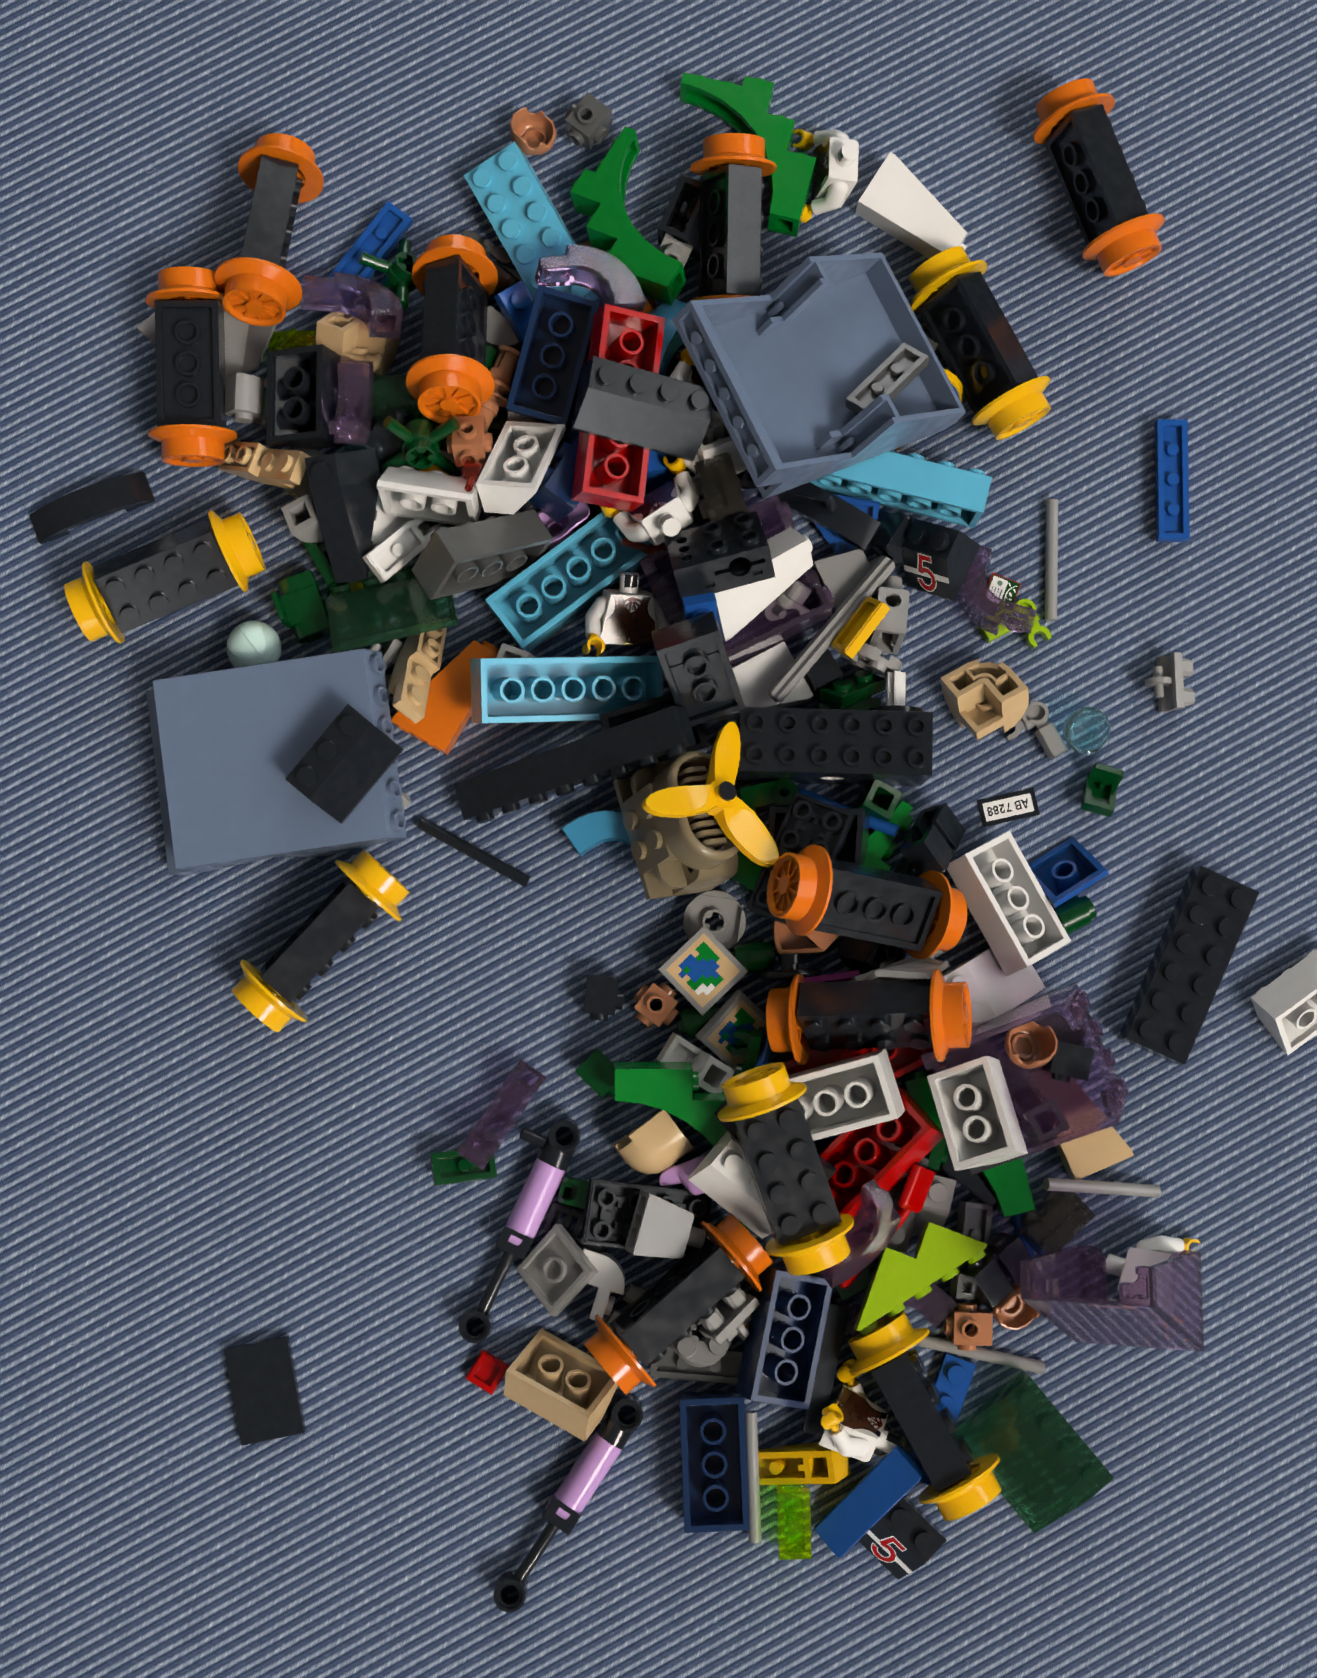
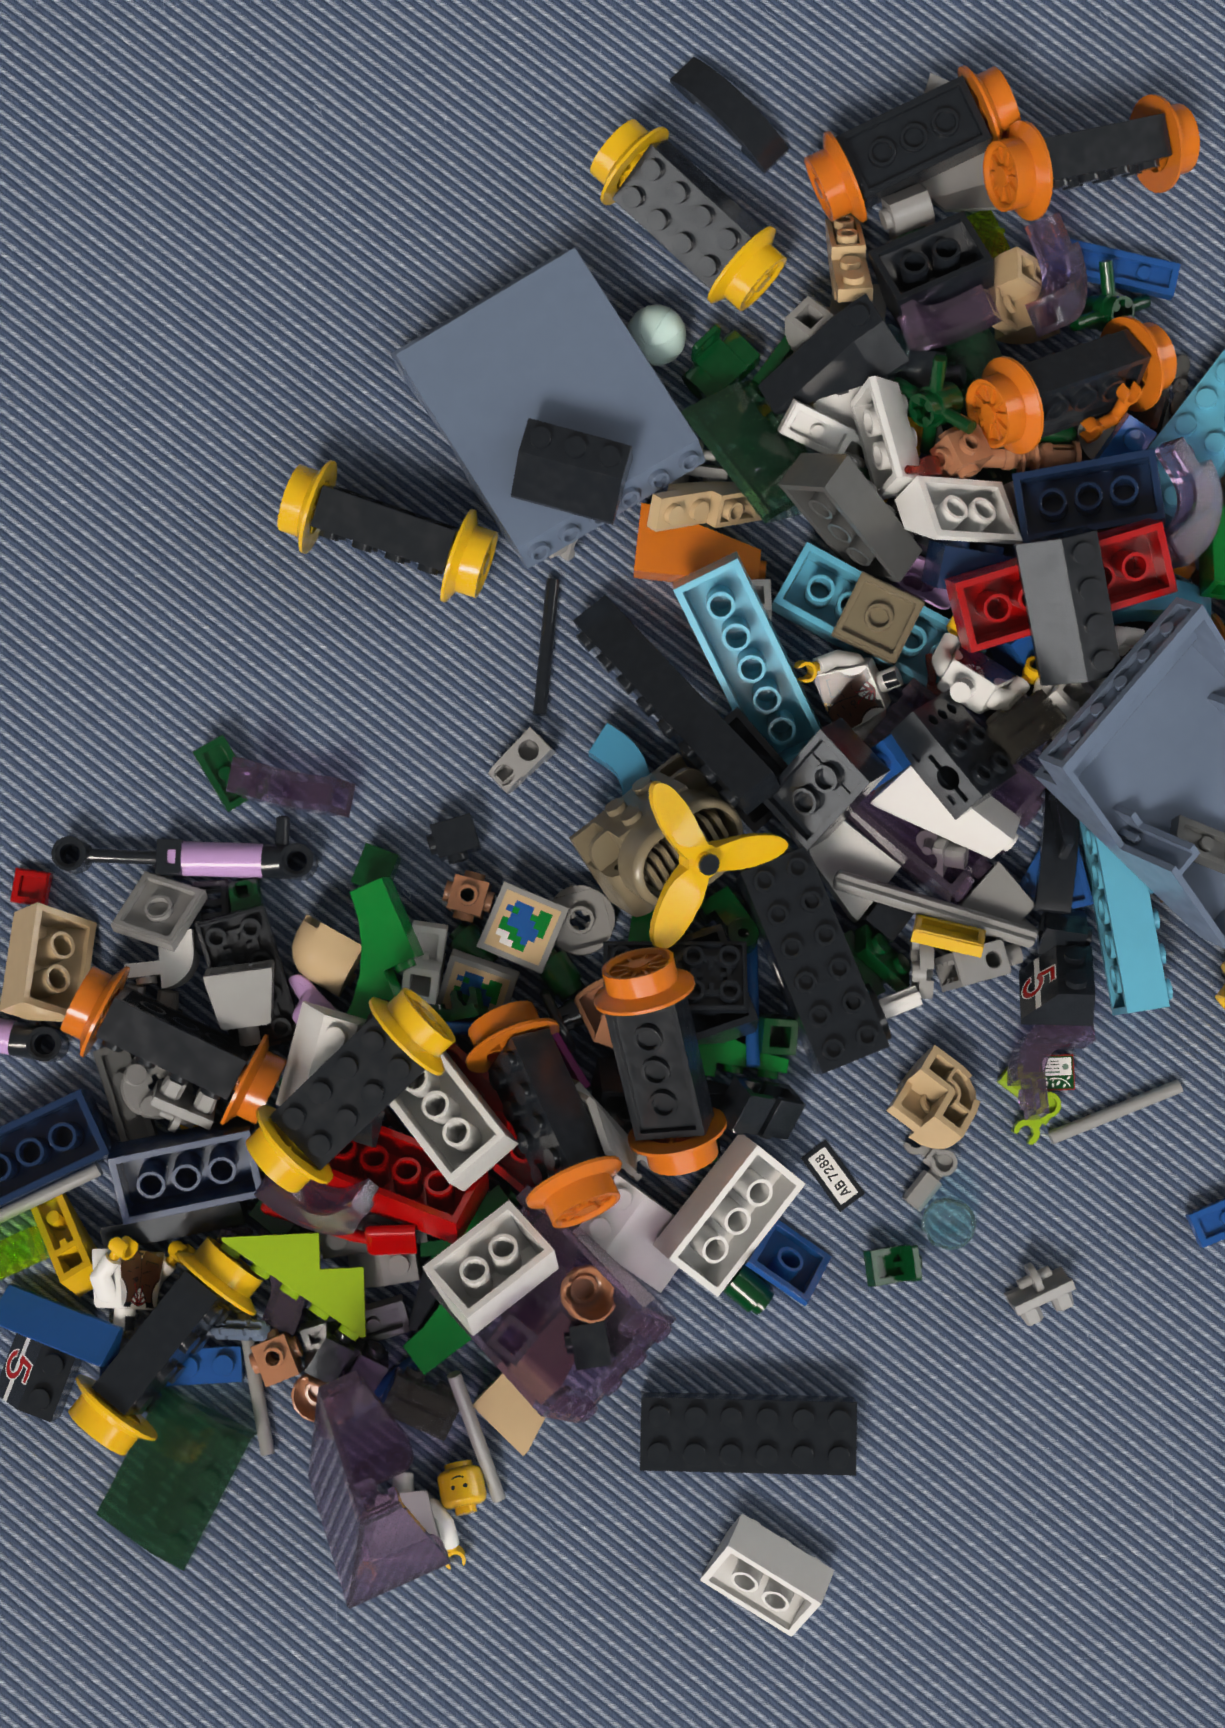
camera: 70 degrees right, 0 degrees up
(482, 291) = (1126, 397): none -> orange arm
(561, 914) = (520, 761): none -> light grey leg
(574, 569) = (878, 618): none -> dark tan tile
(935, 1346) = (241, 1330): none -> sand blue axle
(1137, 1217) = (461, 1487): none -> yellow head

